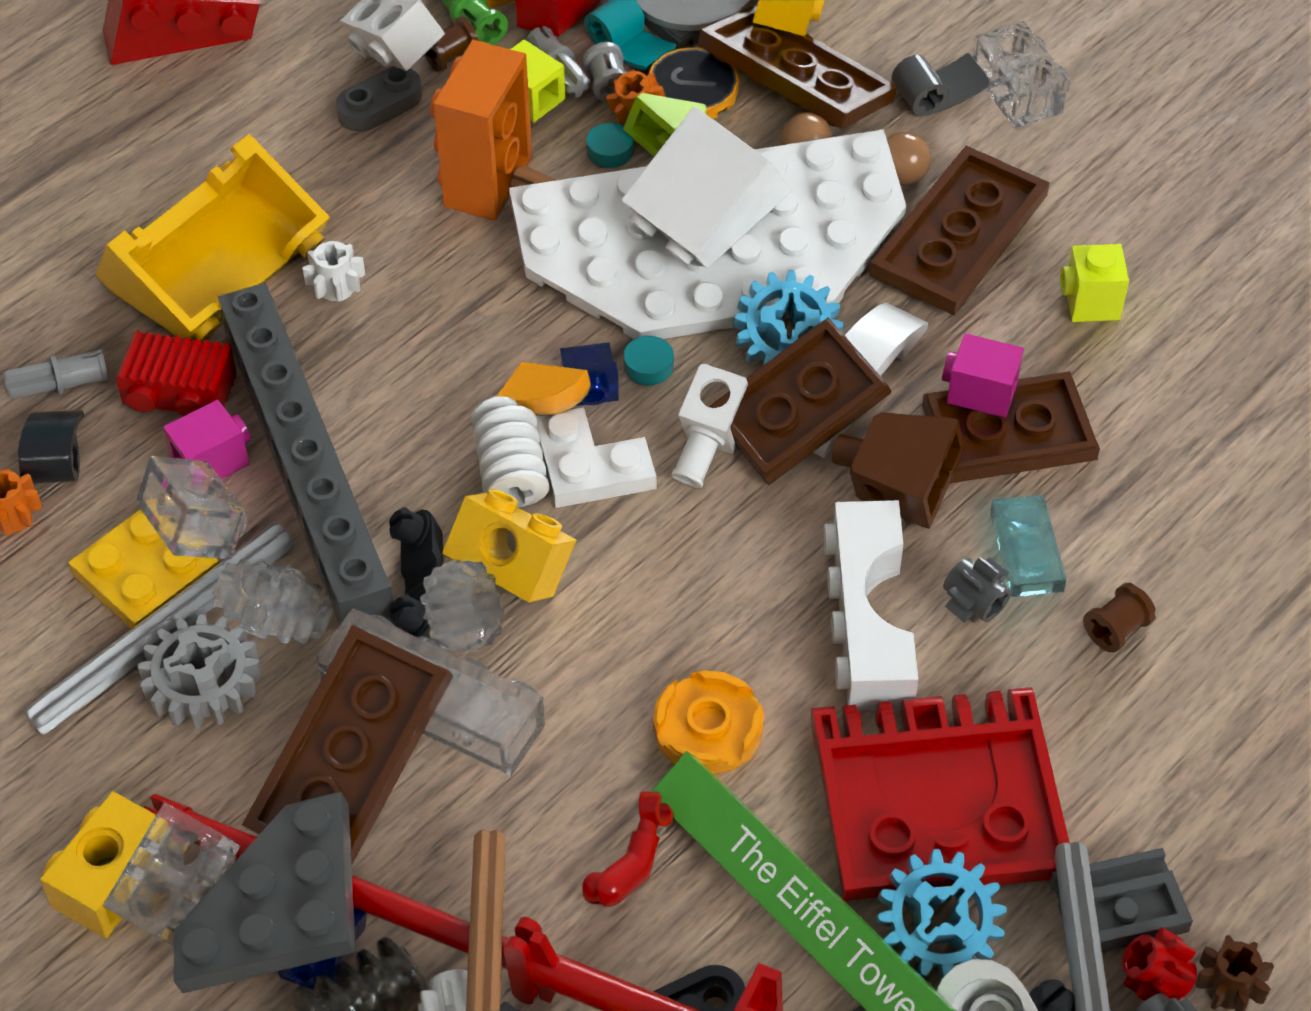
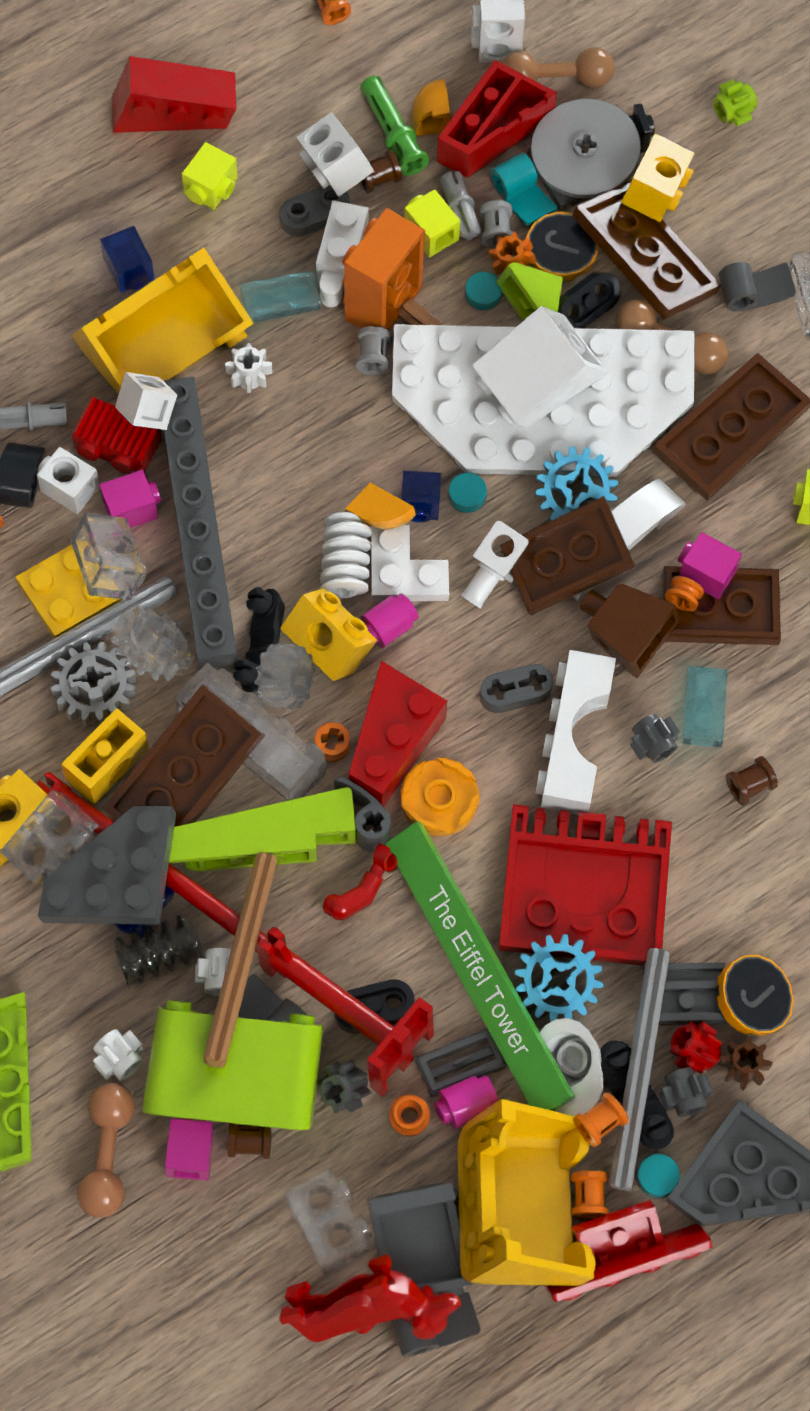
camera: 10 degrees right, 15 degrees up
(120, 435) = (73, 493): none -> white brick
(151, 180) = (127, 259): none -> clear blue brick
(207, 314) = (146, 401): none -> white brick
(232, 754) = (105, 756): none -> yellow brick
(241, 81) = (210, 176): none -> neon yellow brick
(360, 189) = (281, 296): none -> clear light blue plate
(417, 128) = (343, 229): none -> white brick
(489, 235) = (373, 350): none -> light grey bush
(513, 794) = (281, 829): none -> lime wedge
(547, 666) = (324, 733): none -> orange bush
(589, 516) = (390, 619): none -> dark pink brick
(625, 761) = (371, 813): none -> dark grey panel
(628, 652) = (394, 732): none -> red wedge
(762, 113) = (584, 301): none -> black plate
(773, 568) = (514, 680): none -> dark grey beam
(967, 407) = (684, 593): none -> orange bush
(1217, 883) = (754, 995): none -> black tile

